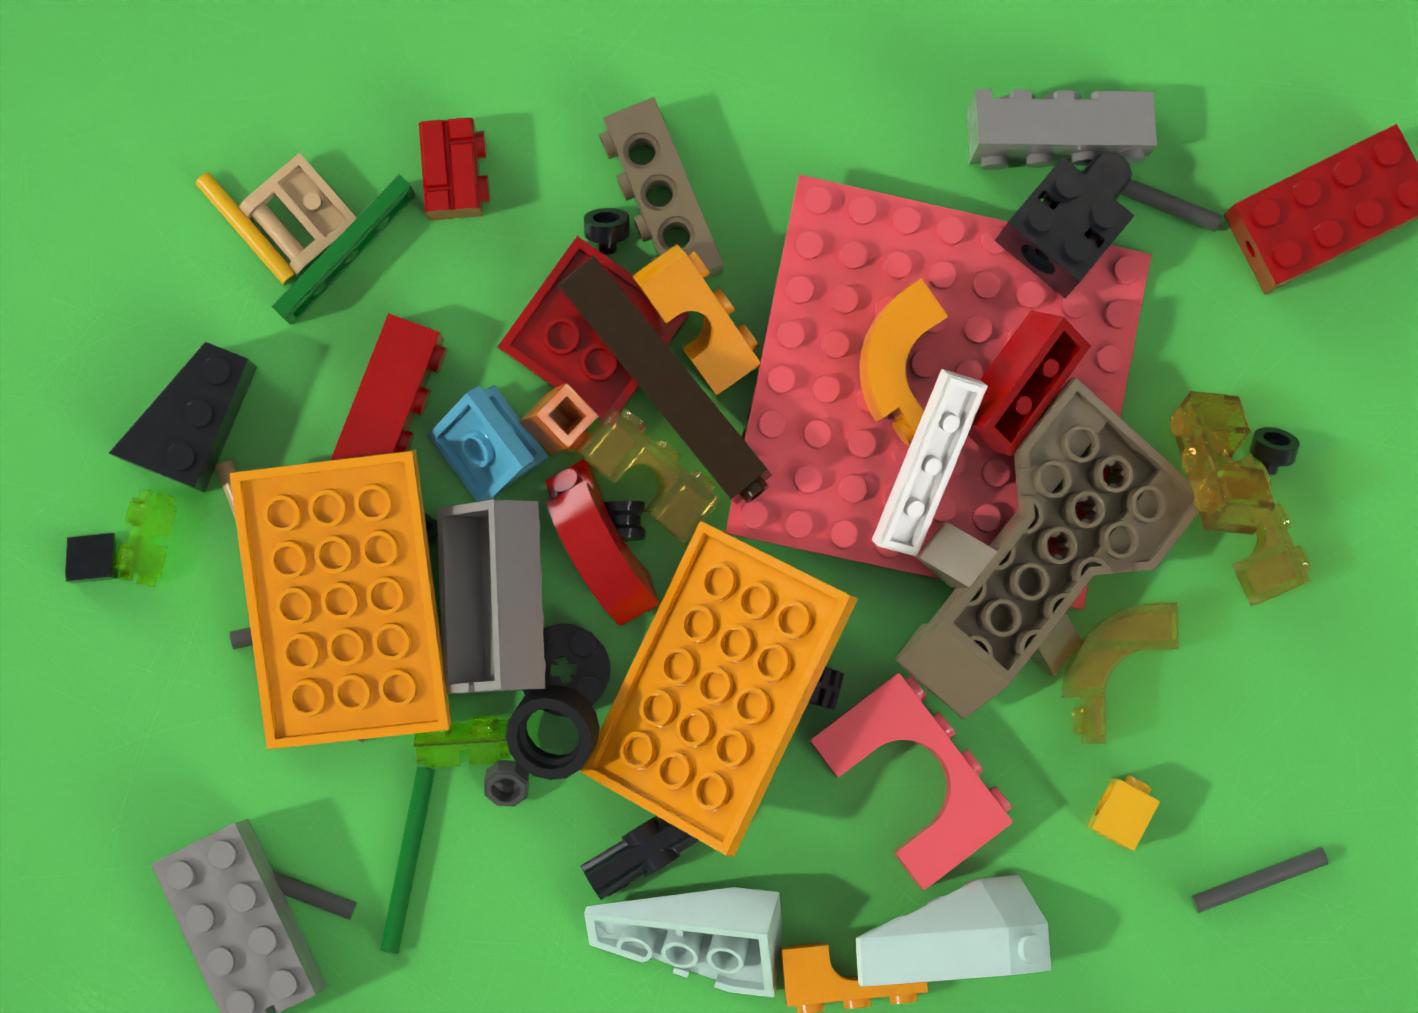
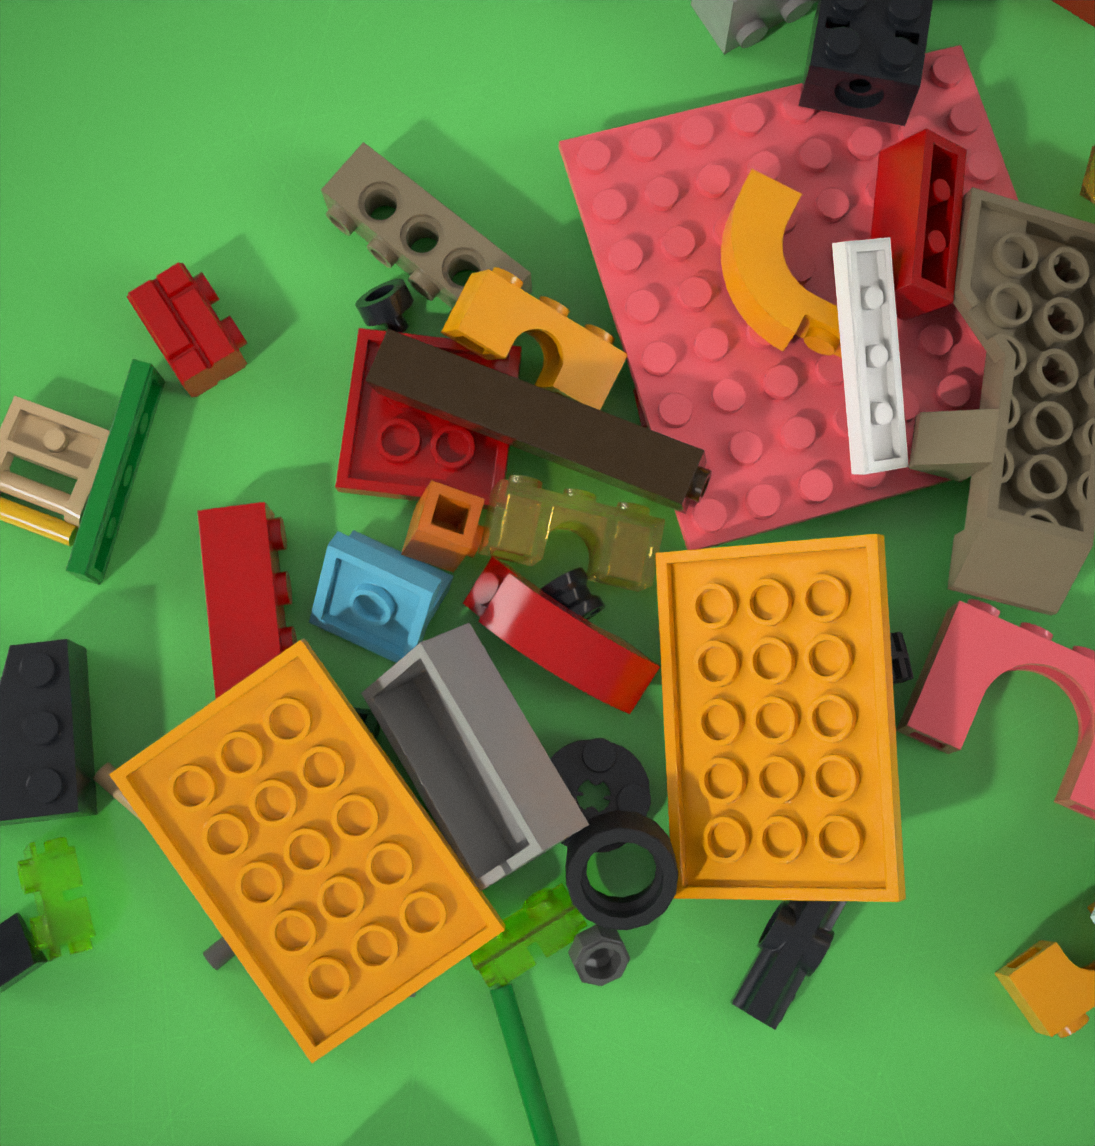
camera: 20 degrees left, 5 degrees down
(714, 933) = (913, 1001): light aqua wedge -> none

